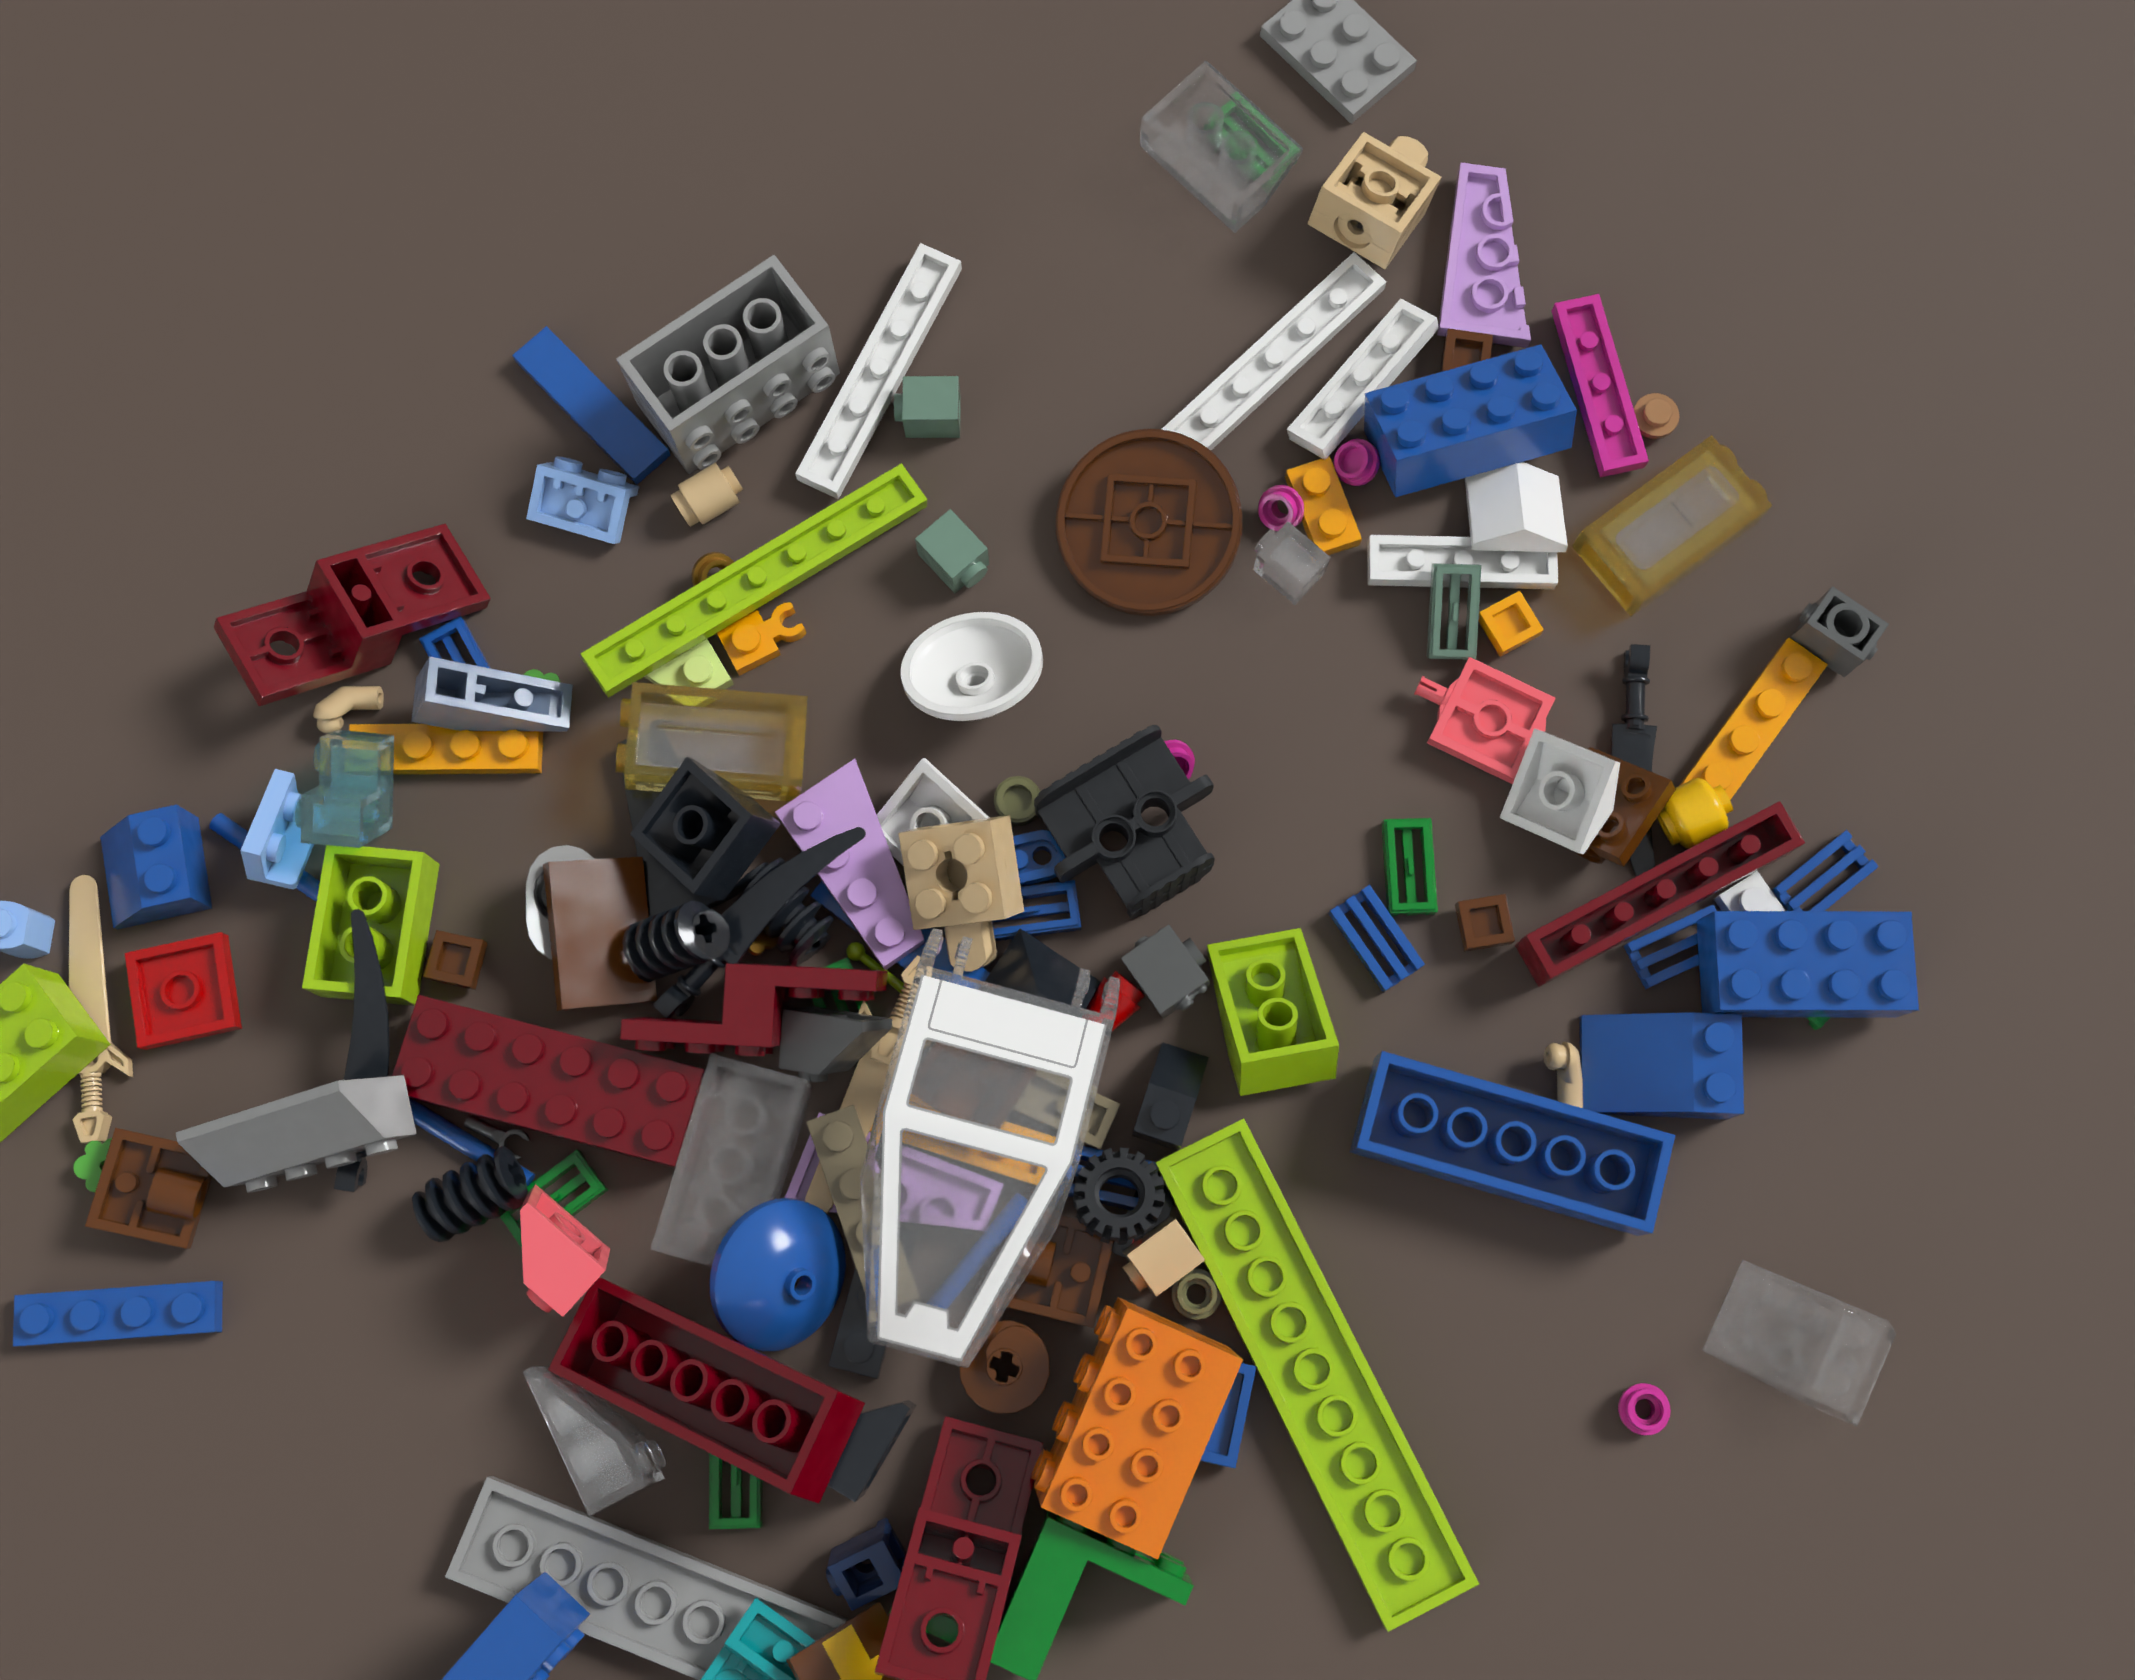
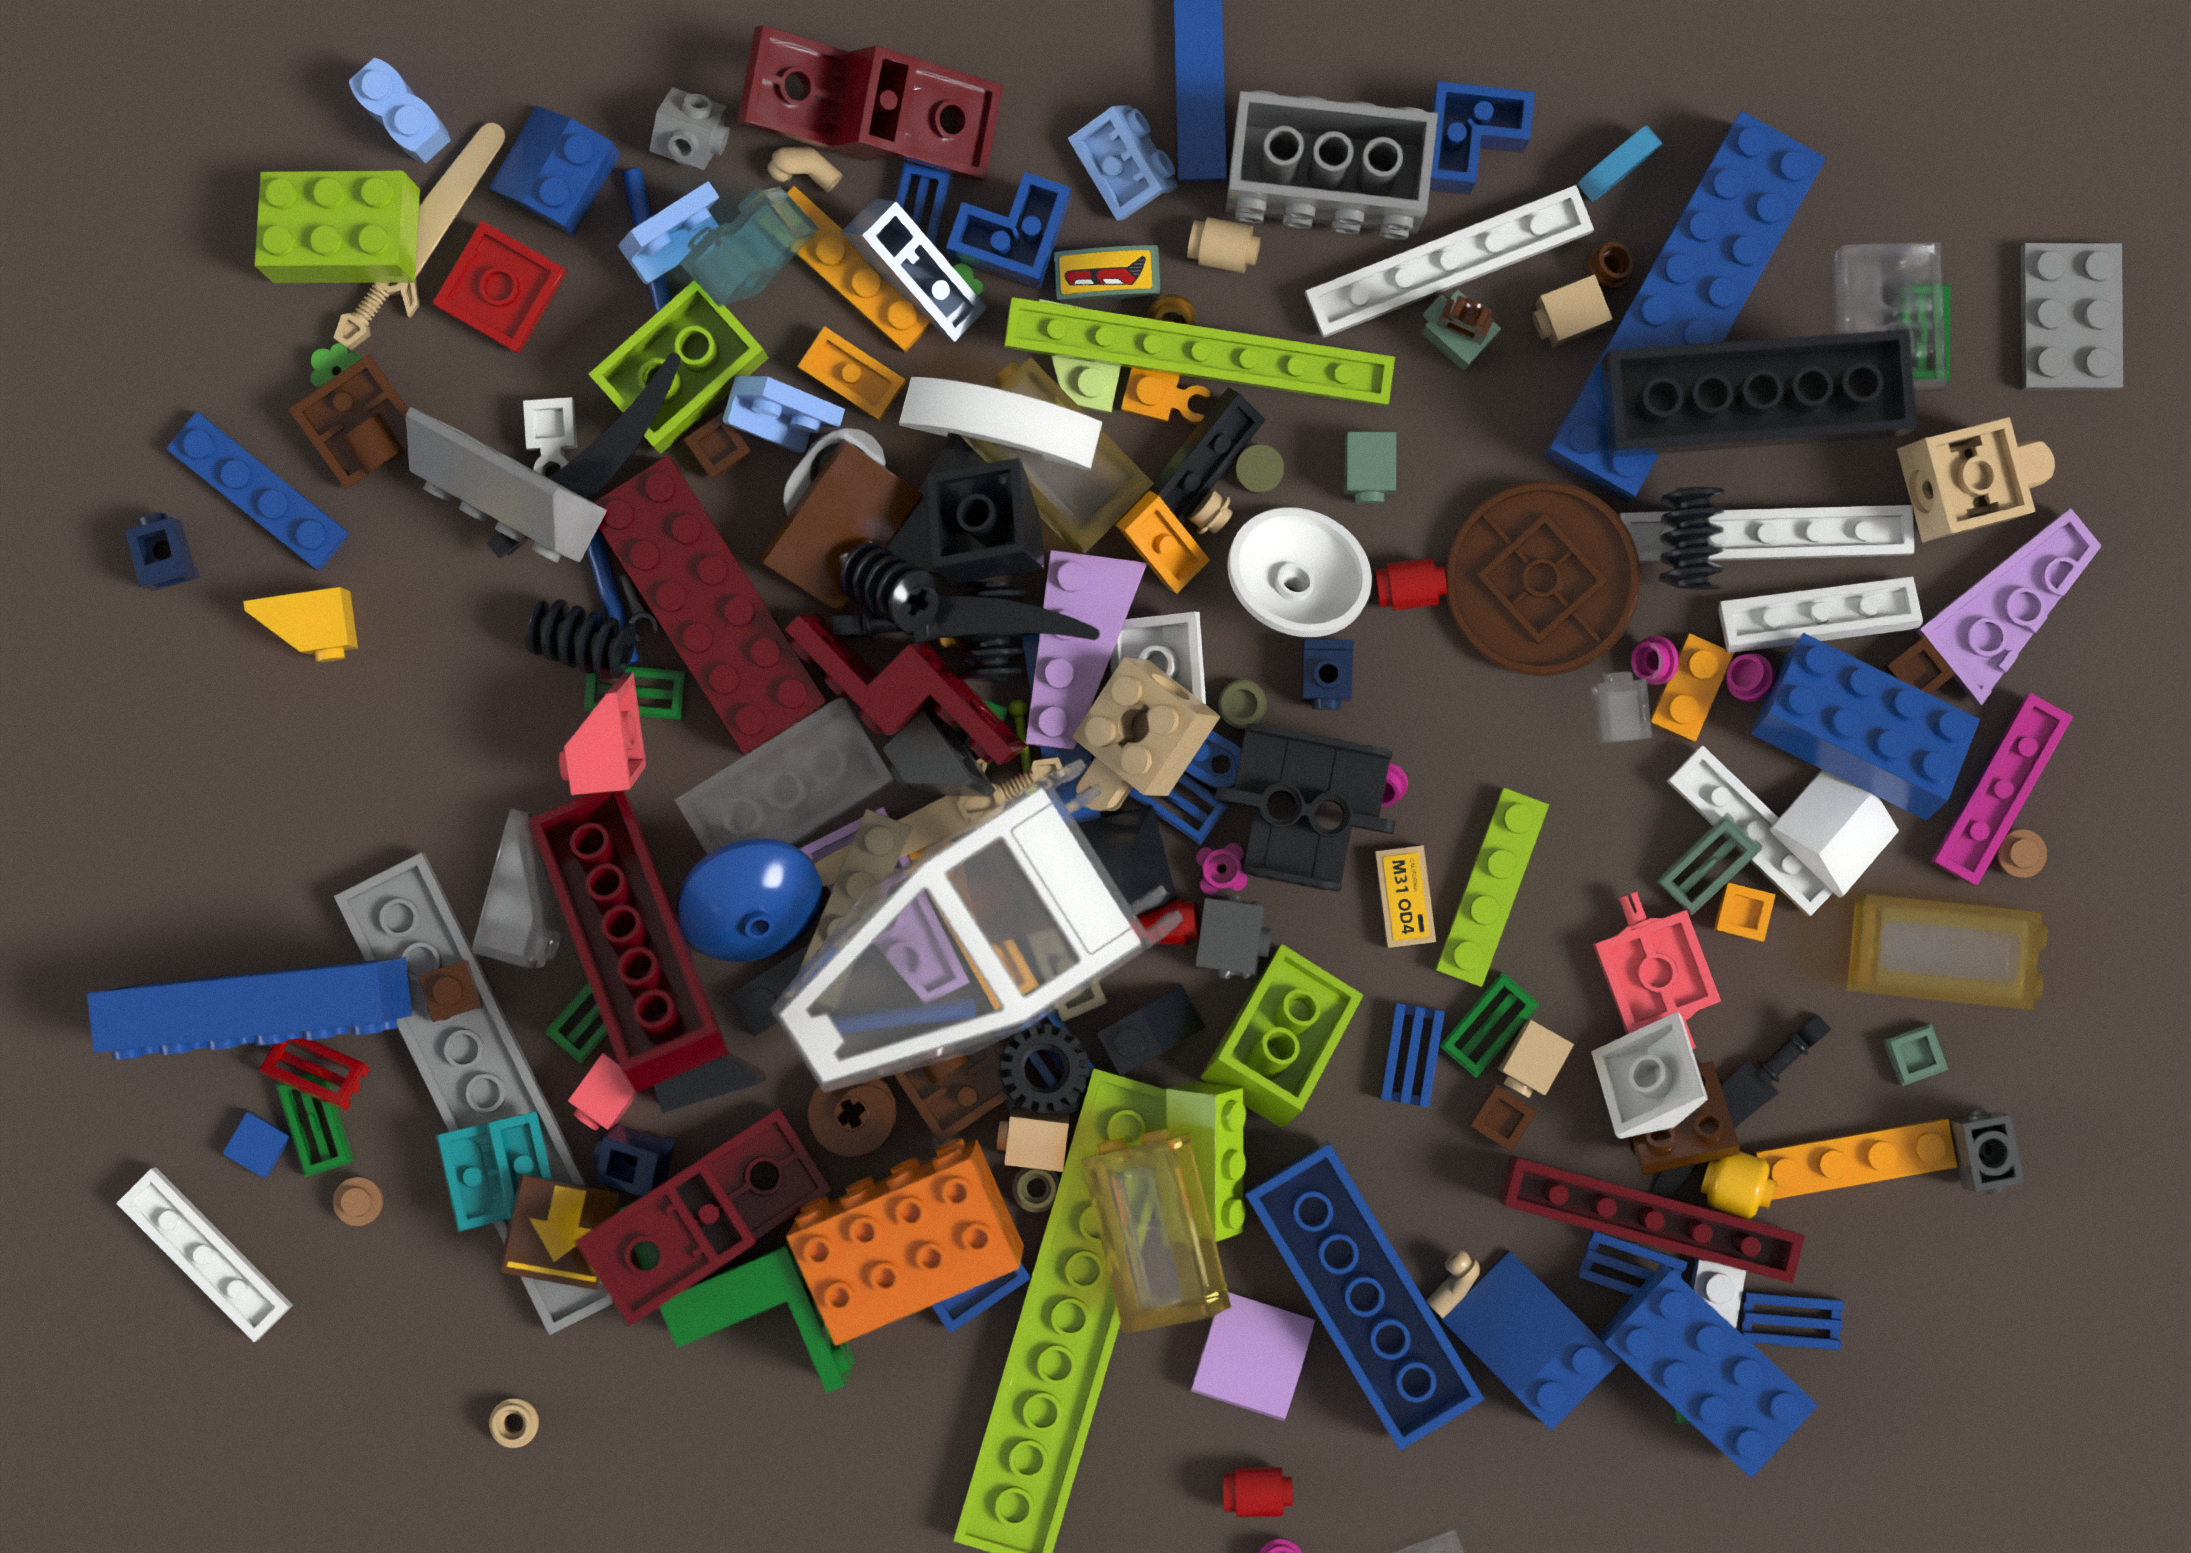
camera: 45 degrees right, 10 degrees up
(56, 1435) = (144, 546): none -> dark blue brick
(231, 749) = (689, 129): none -> light grey brick
(243, 1374) = (310, 621): none -> yellow slope
(311, 1058) = (550, 429): none -> white plate
(477, 889) = (778, 412): none -> light blue bracket
(512, 819) = (851, 374): none -> light orange plate
(550, 621) = (1017, 244): none -> blue brick
(603, 1565) = (450, 991): none -> reddish brown plate
(640, 583) = (1107, 272): none -> slope
(648, 741) = (1001, 418): none -> white slope
(799, 1532) = (603, 1094): none -> coral brick
(815, 253) = (1471, 120): none -> blue brick
(828, 654) = (1207, 454): none -> black plate
(852, 733) = (1162, 542): none -> light orange plate
(869, 685) = (1211, 513): none -> tan plate
(877, 626) = (1259, 469): none -> olive tile
(926, 383) = (1466, 318): none -> reddish brown plate
(937, 205) = (1619, 163): none -> dark azure beam
(995, 275) = (1620, 260): none -> reddish brown plate
(997, 327) = (1571, 312): none -> tan brick
(1057, 740) = (1321, 653): none -> dark blue brick
(1059, 608) = (1410, 584): none -> red brick
(1073, 260) = (1695, 281): none -> blue brick
(1113, 917) = (1209, 861): none -> dark pink plate
(1178, 251) = (1758, 393): none -> black brick
(1224, 399) = (1691, 538): none -> black piece
(1263, 830) = (1405, 896): none -> tile
(1303, 1152) = (1215, 1124): none -> lime brick
(1317, 1238) = (1155, 1231): none -> clear yellow piece
(1318, 768) = (1492, 887): none -> lime plate
(1466, 858) = (1534, 1059): none -> tan brick
(1474, 1269) = (1253, 1357): none -> lavender slope
(1575, 1370) = (1257, 1492): none -> red brick
(1721, 616) = (1915, 1054): none -> sand green tile

